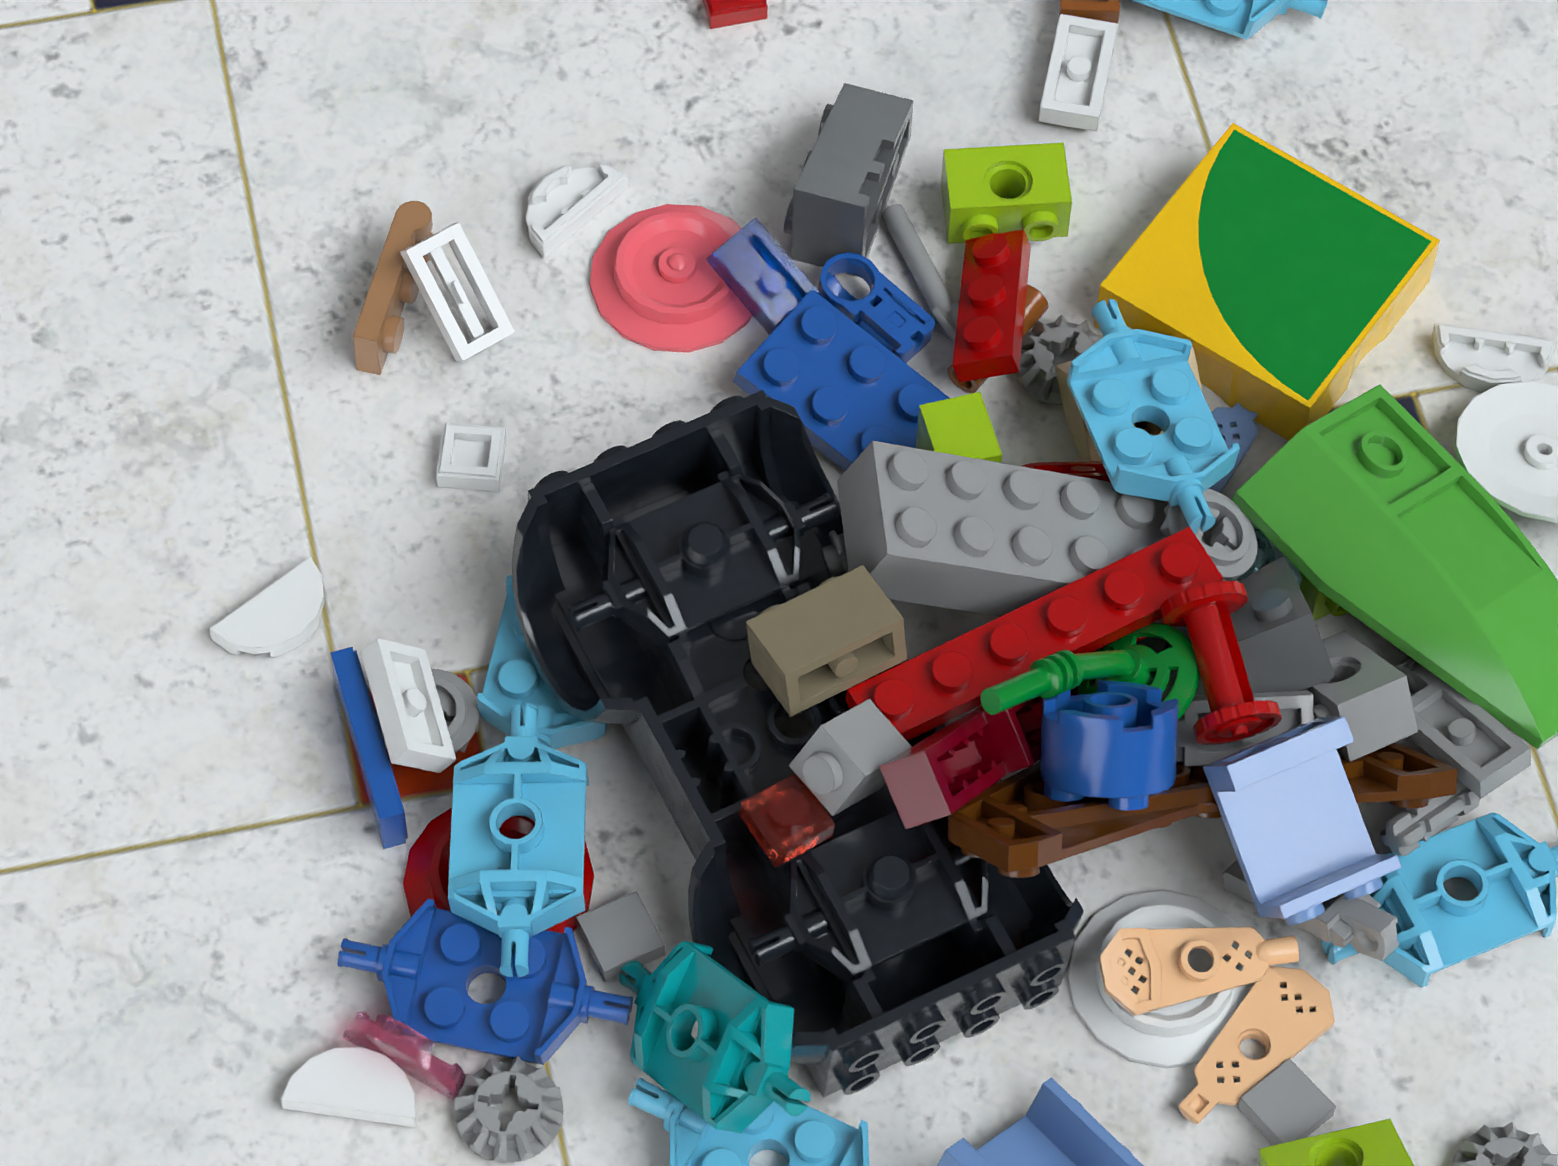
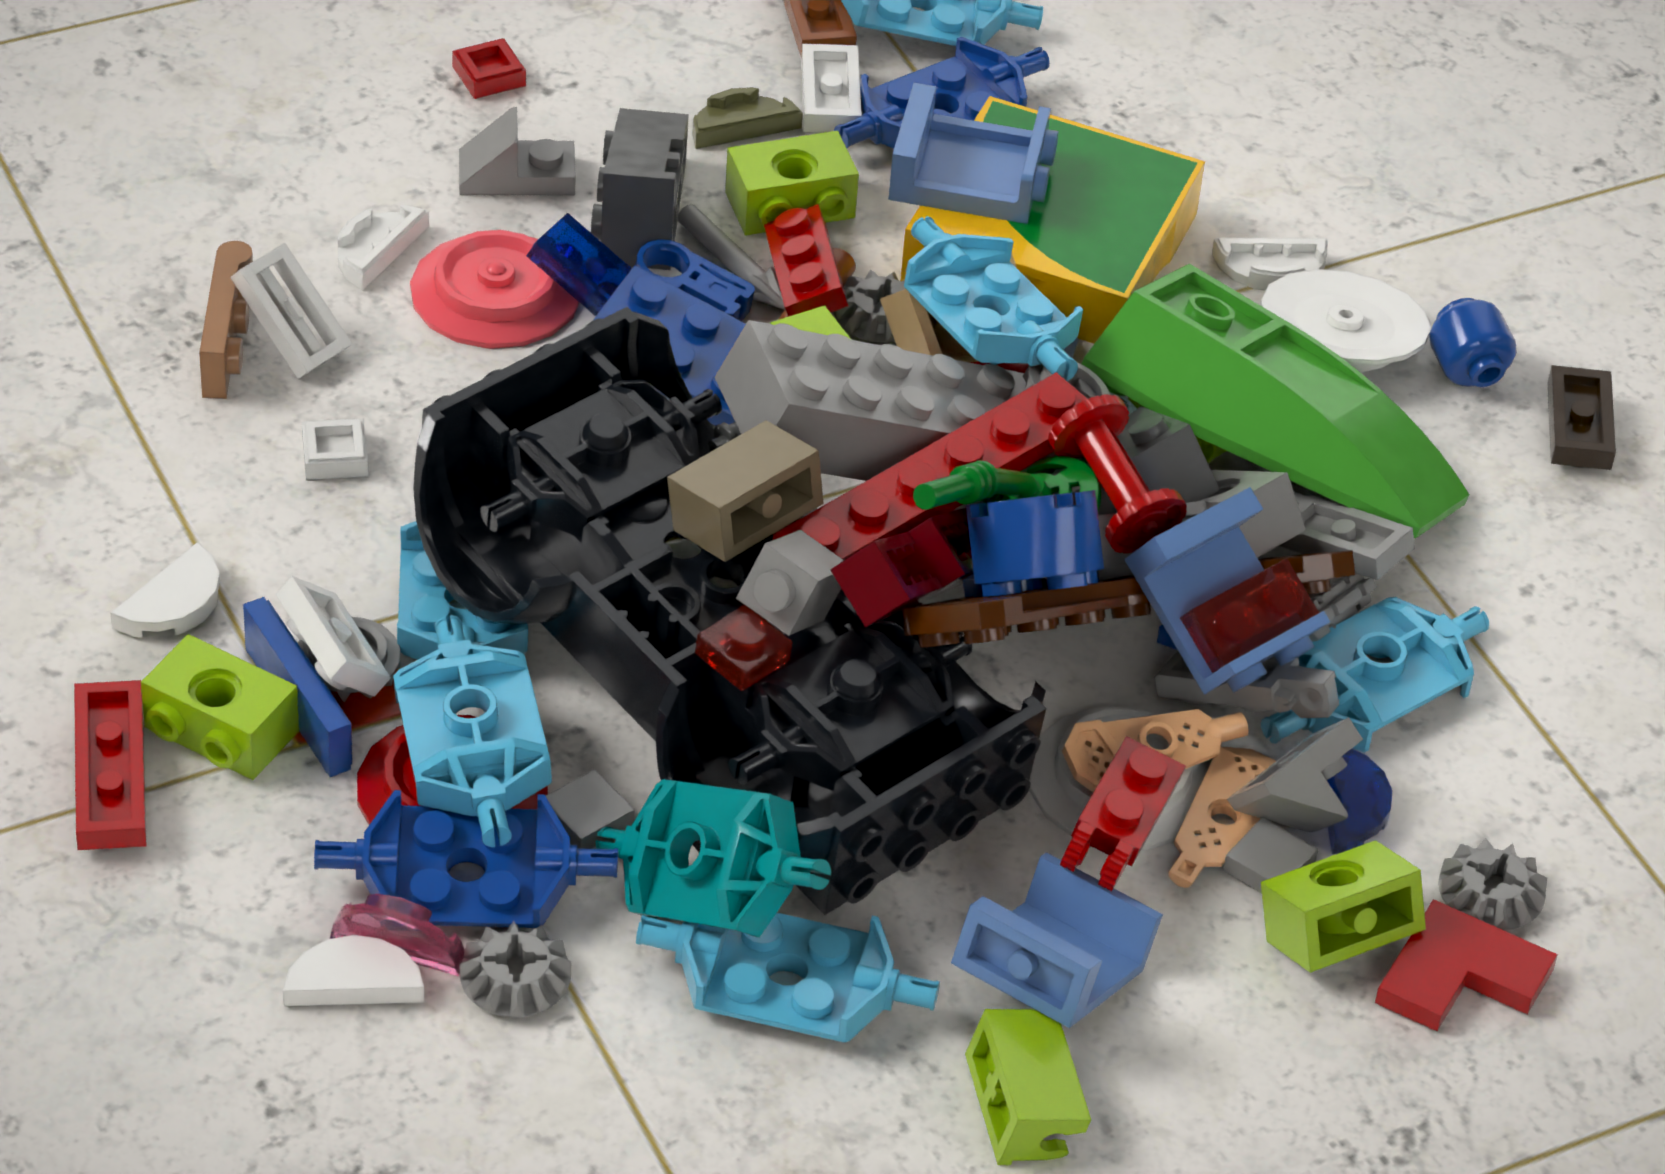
camera: 15 degrees left, 15 degrees down
(171, 809) = (109, 765): none -> red plate
(276, 729) = (220, 706): none -> lime brick
(723, 126) = (503, 165): none -> light grey slope
(979, 90) = (743, 115): none -> olive tile
(1140, 1043) = (1123, 809): none -> red hinge
(1184, 213) = (970, 162): none -> medium blue panel
(1223, 84) = (961, 90): none -> blue plate
(1322, 843) = (1249, 615): none -> clear red plate
(1325, 1028) = (1296, 785): none -> light grey slope
(1393, 1045) = (1365, 796): none -> clear blue tile

